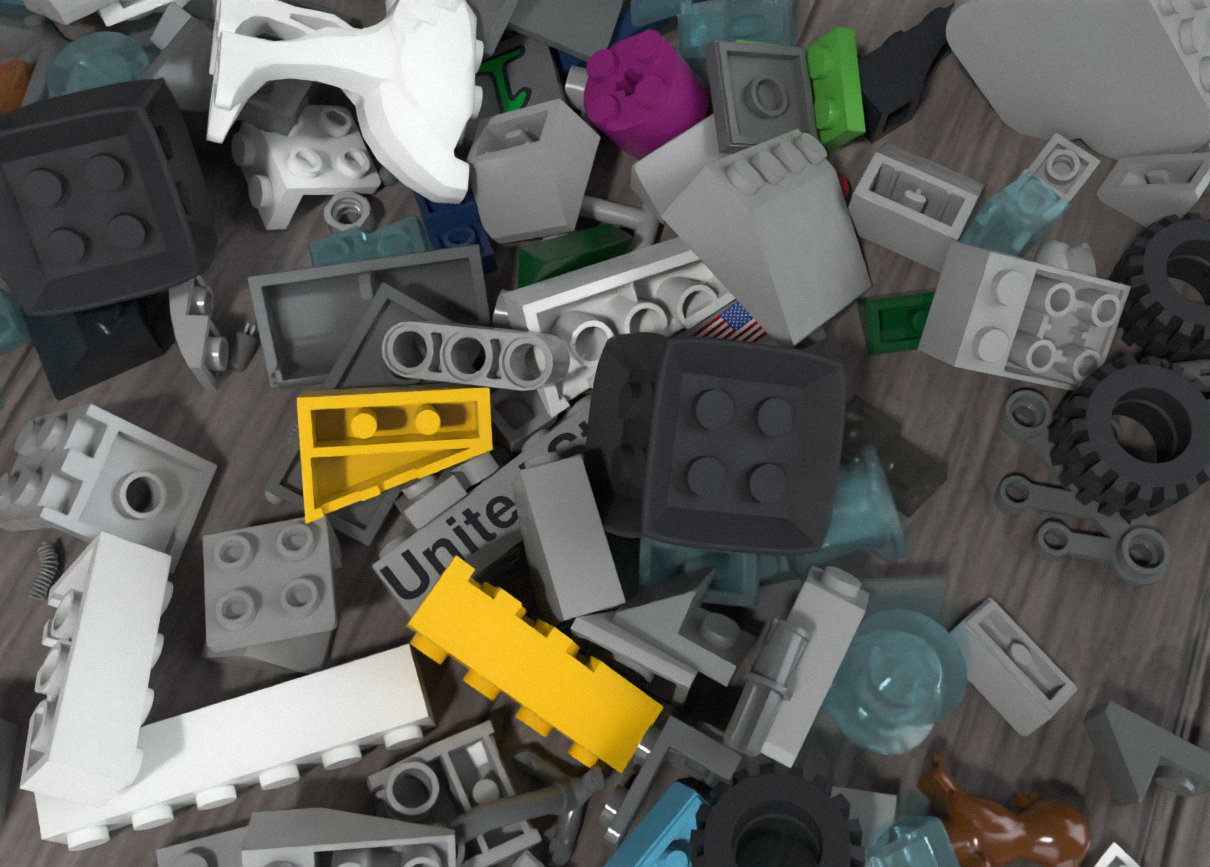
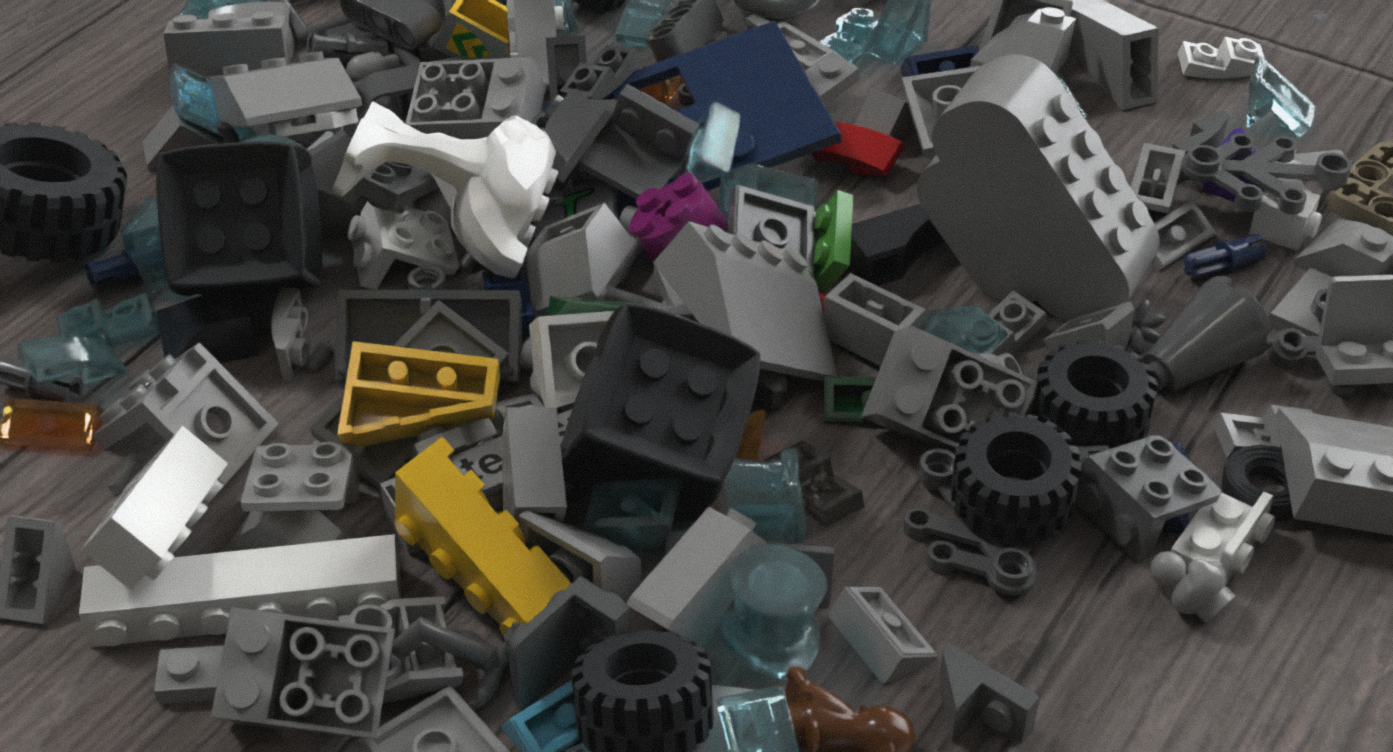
camera: 10 degrees right, 25 degrees down
(448, 355) = (516, 346): light grey beam -> none
(672, 621) = (606, 525): dark grey slope -> none
(766, 686) = (657, 560): dark grey axle -> none

